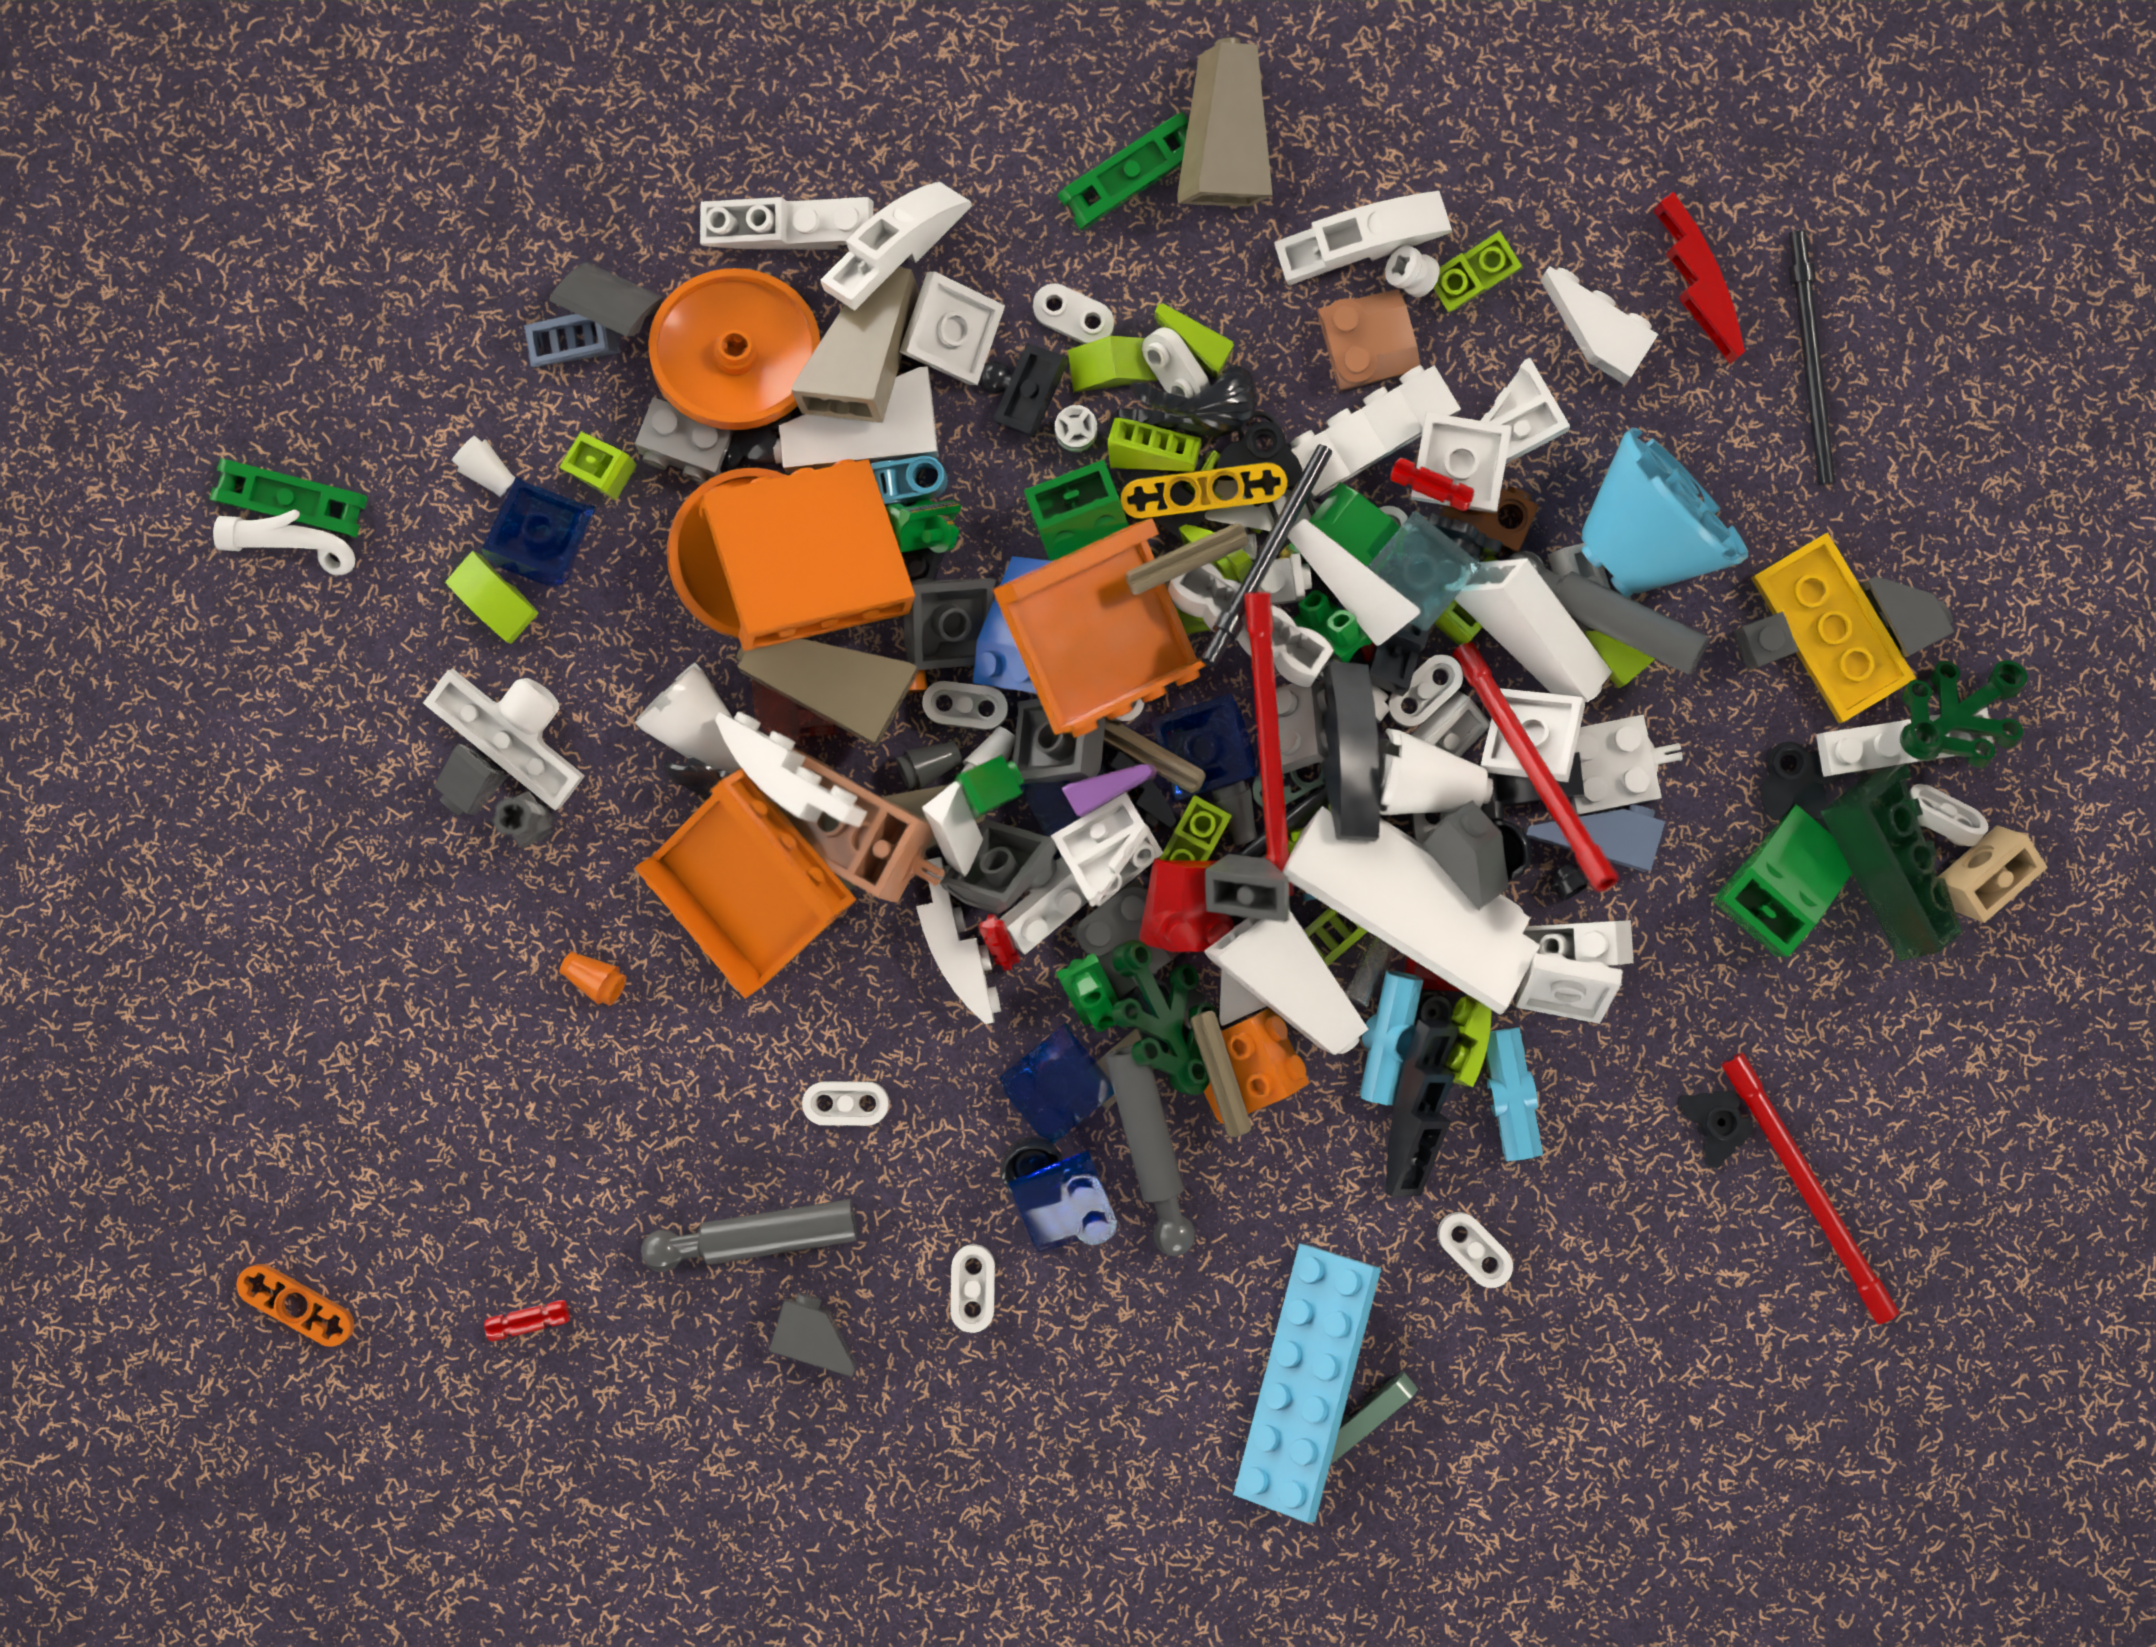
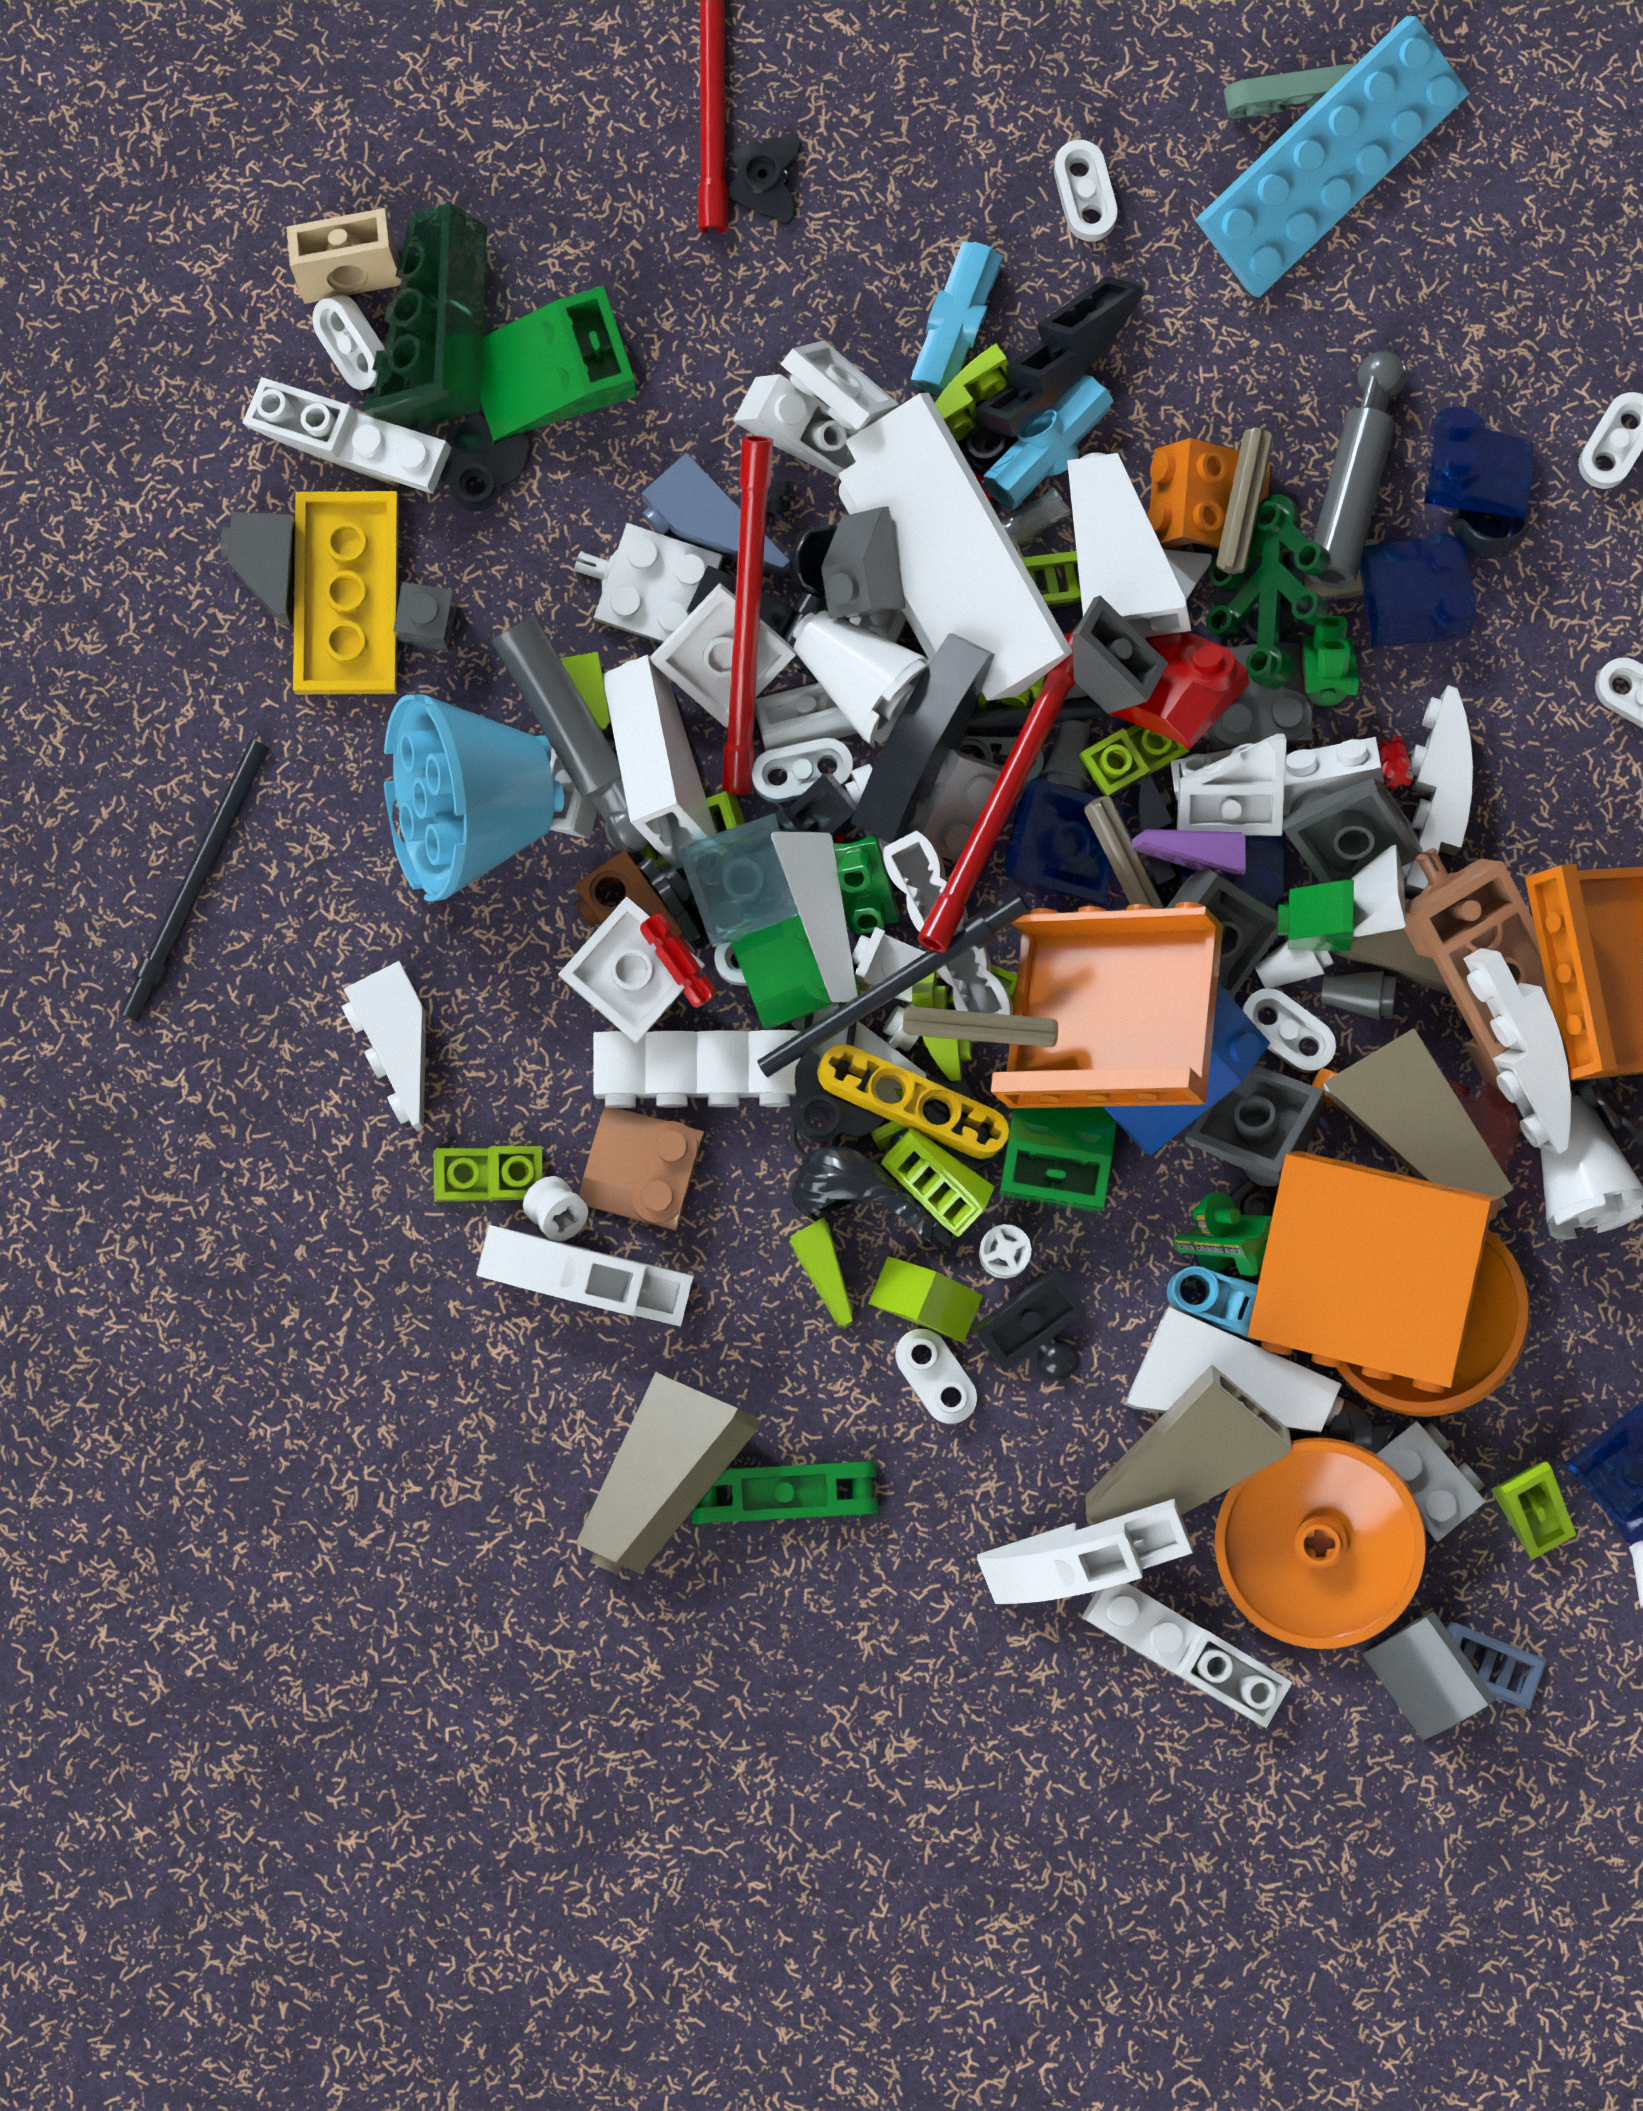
camera: 150 degrees left, 5 degrees down
(952, 328) = (1076, 1430): white plate -> none
(1174, 363) = (863, 1251): white plate -> none
(1530, 412) = (527, 995): white wing -> none
(1708, 295) = (262, 1006): red slope -> none
(1927, 738) = (280, 425): dark green plant -> none

